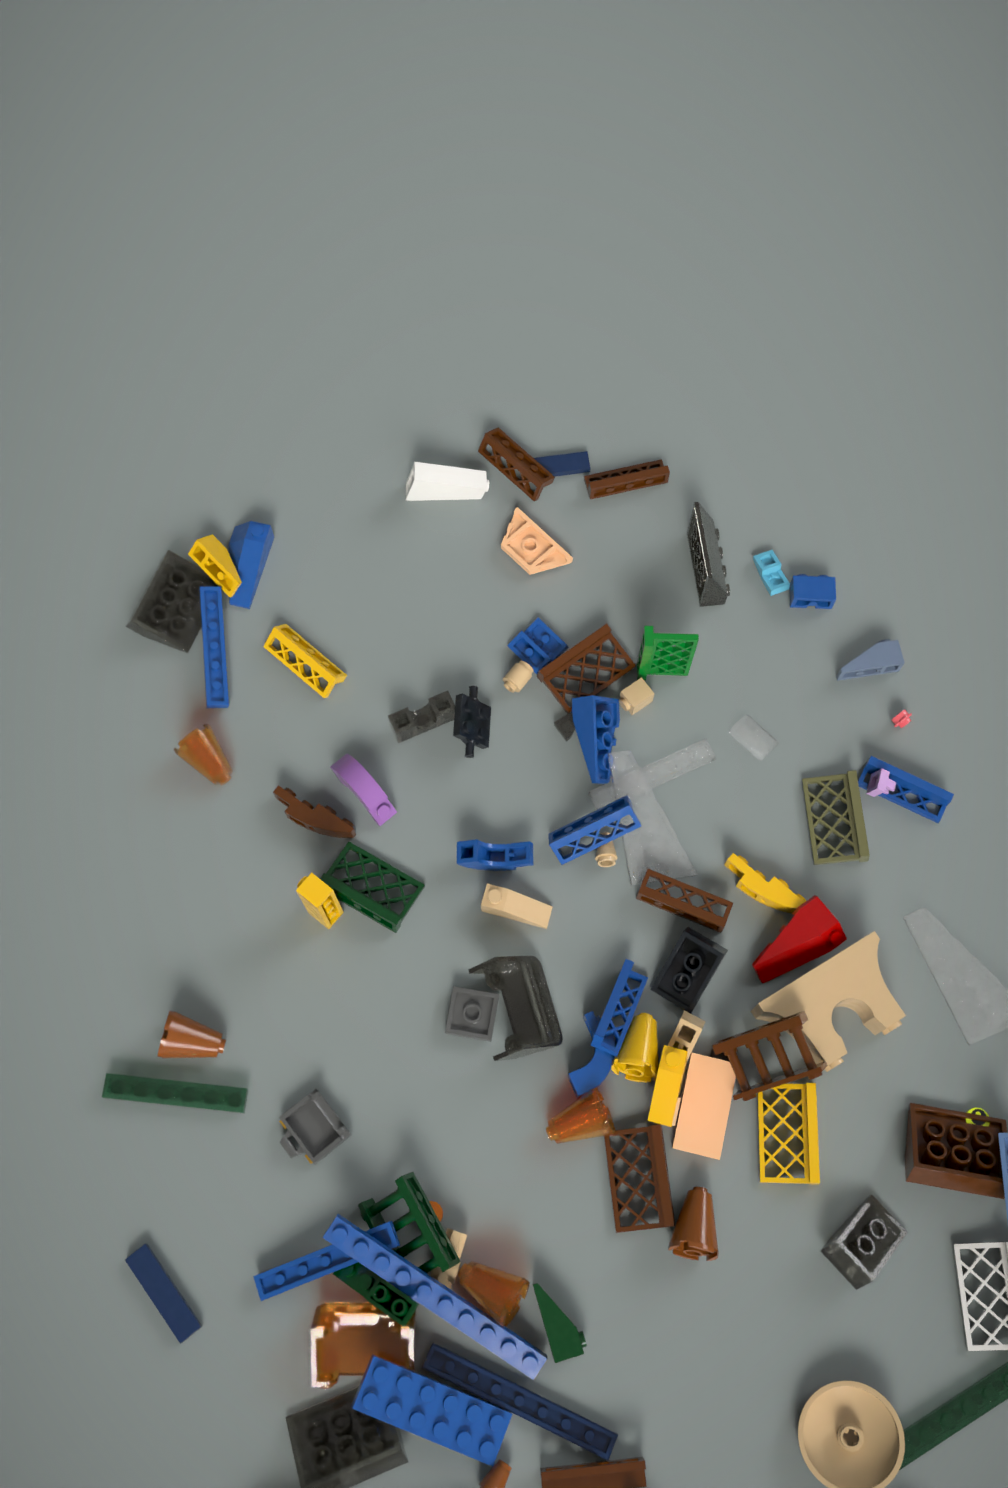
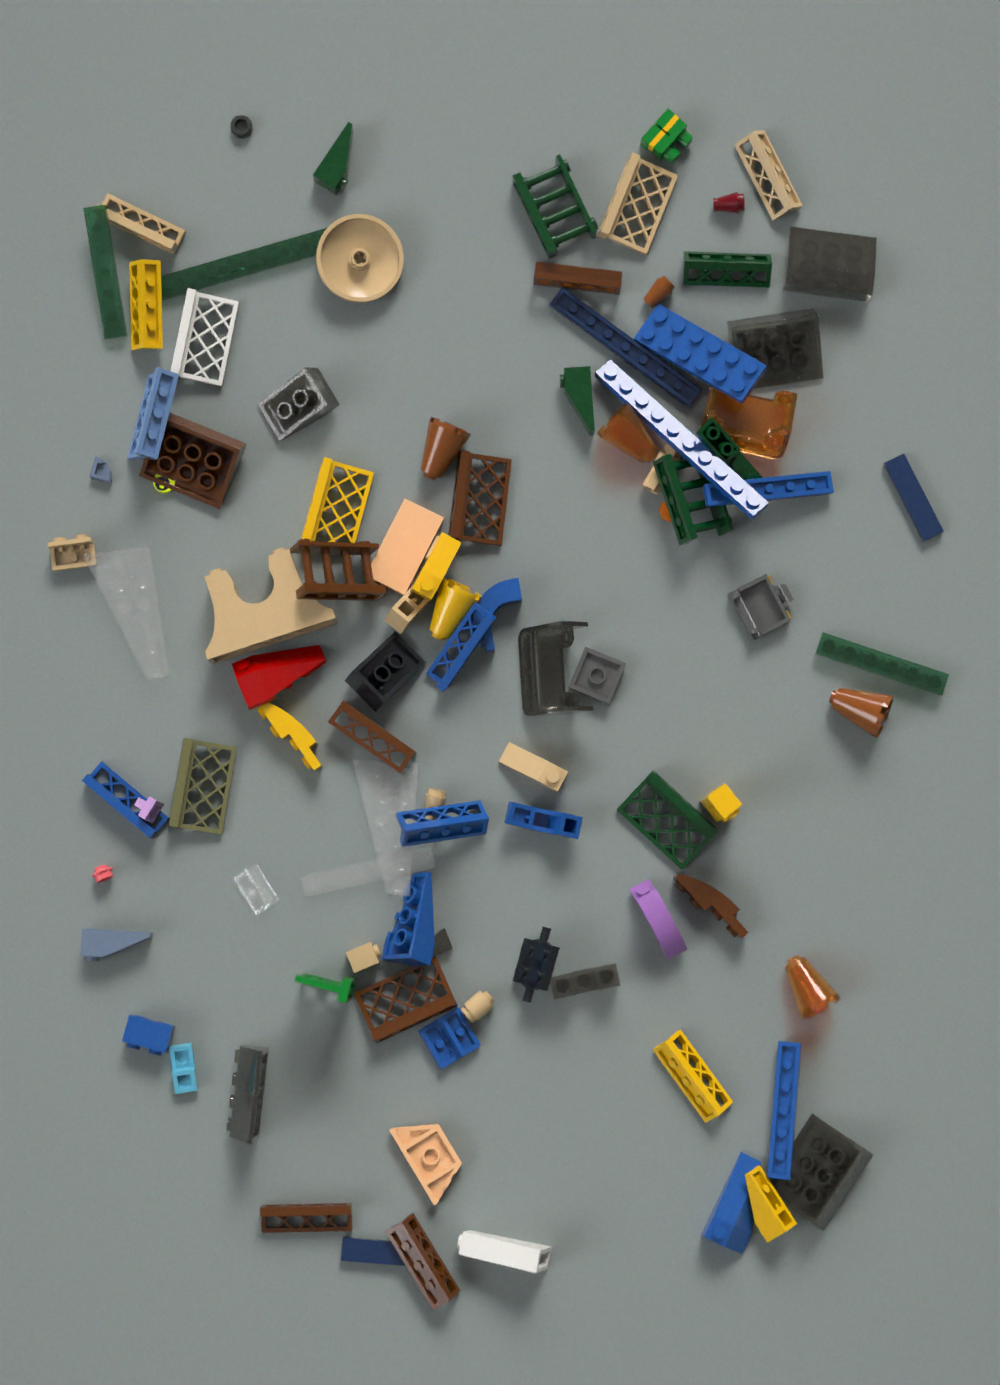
camera: 170 degrees left, 15 degrees up
(582, 1119) = (518, 557): clear orange cone -> none

